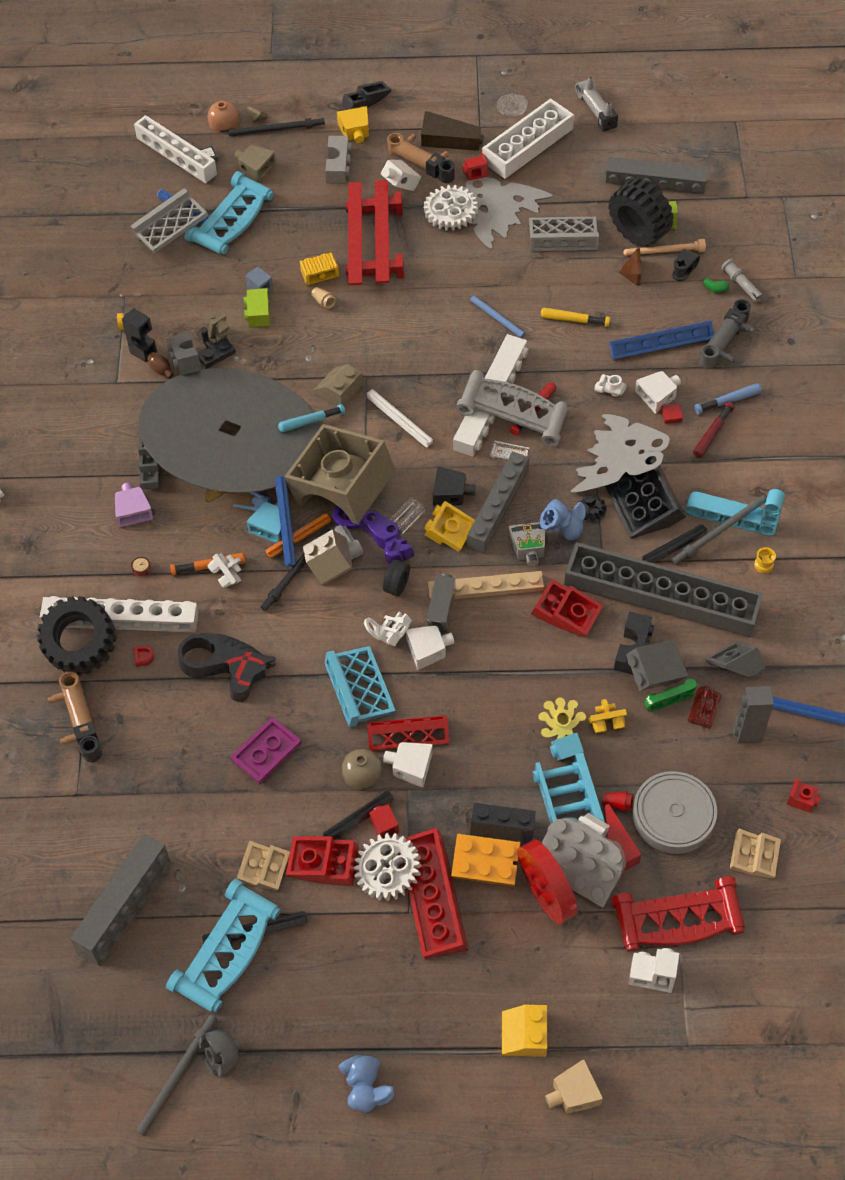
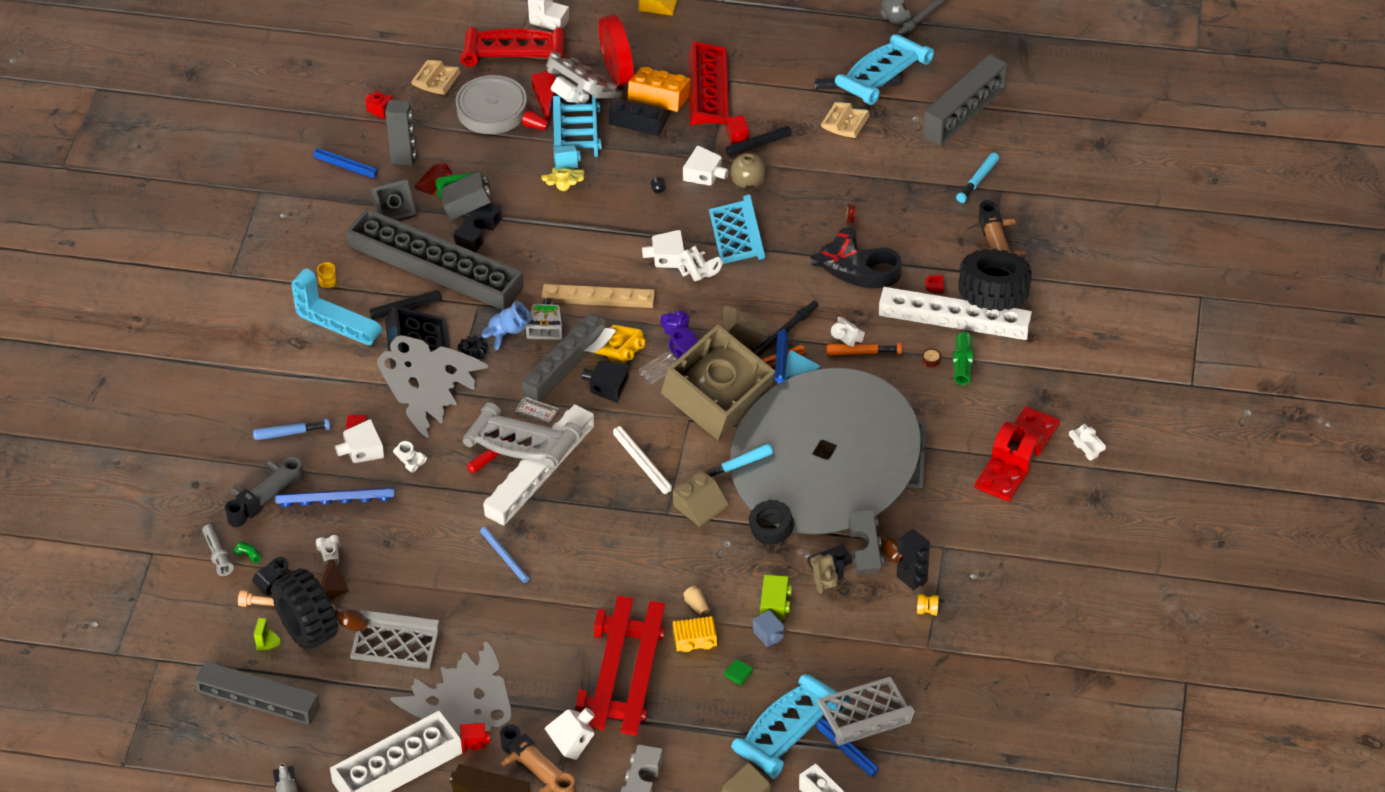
camera: 170 degrees left, 10 degrees down
(46, 493) = (1007, 468): none -> red piece
(102, 806) = (984, 169): none -> medium azure piece
(108, 565) = (963, 358): none -> green piece
(131, 506) = (935, 407): lavender torso -> none
(240, 725) = (850, 214): none -> clear red tile
(265, 750) = (830, 193): magenta plate -> none
(267, 380) = (775, 535): none -> black tyre
(278, 250) = (738, 672): none -> green tile
(322, 860) = (796, 112): red slope -> none
(396, 577) = (683, 298): black tyre -> none
(399, 877) = (741, 98): white gear -> none
(404, 725) = (700, 193): red fence -> none
(442, 601) = (646, 264): dark grey brick -> none
(450, 207) = (514, 691): white gear -> none
(456, 732) = (658, 185): none -> black hinge
(467, 522) = (601, 340): none -> white sticker
(556, 314) = (424, 540): yellow piece -> none
(567, 608) = (532, 260): red slope -> none
(598, 720) = (522, 176): yellow hips -> none
(601, 221) = (352, 620): none -> reddish brown plant
(646, 291) = (329, 548): none -> white plate
(689, 550) = (394, 294): dark grey bar -> none
(708, 437) = (323, 399): dark red piece -> none

